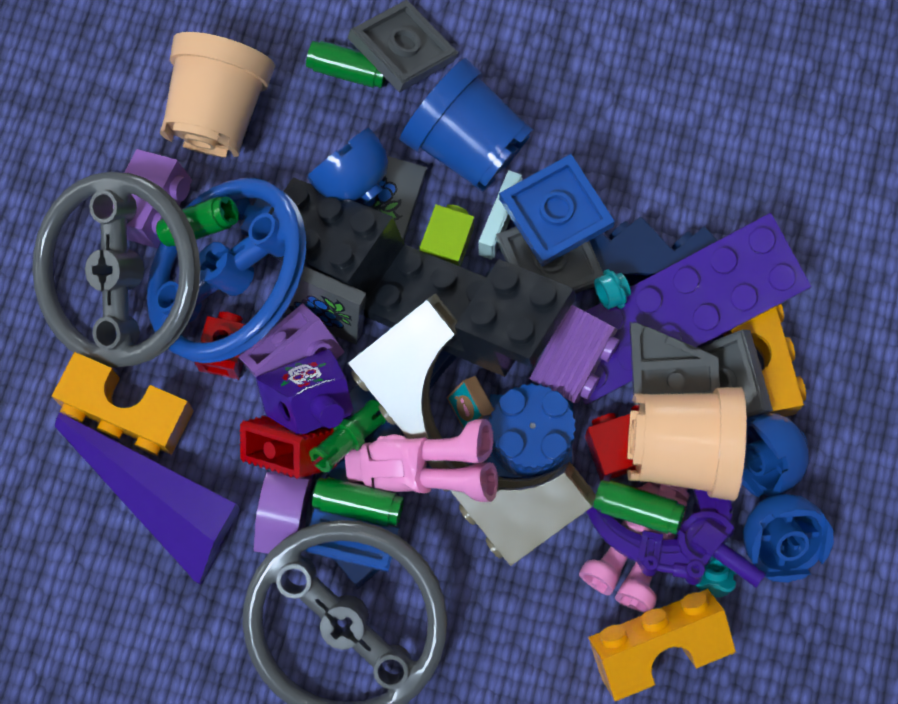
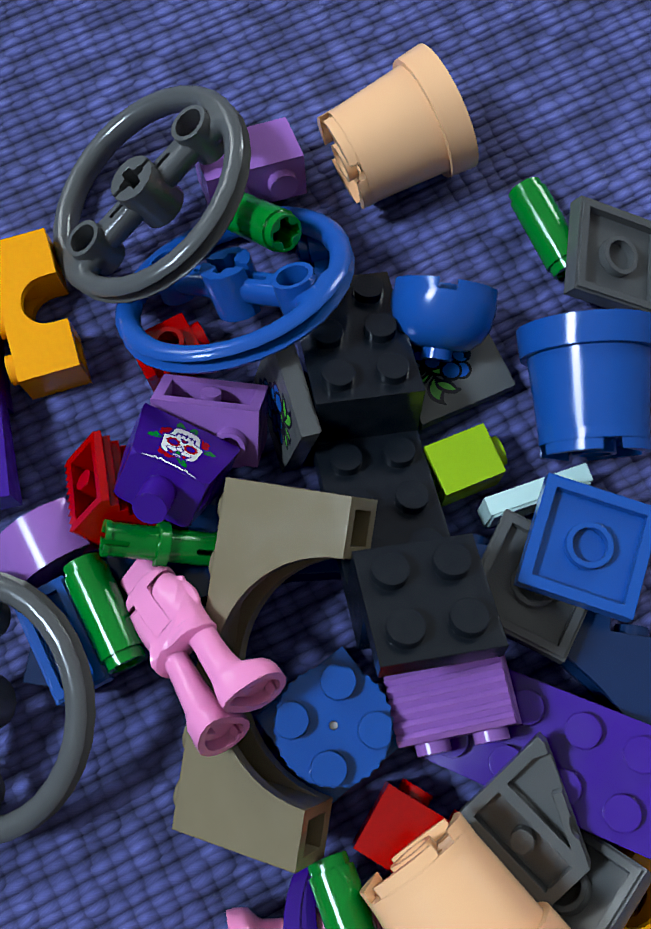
camera: 50 degrees right, 0 degrees up
(470, 401) = (313, 636): medium nougat tile -> none
(612, 289) = (558, 681): teal plate -> none

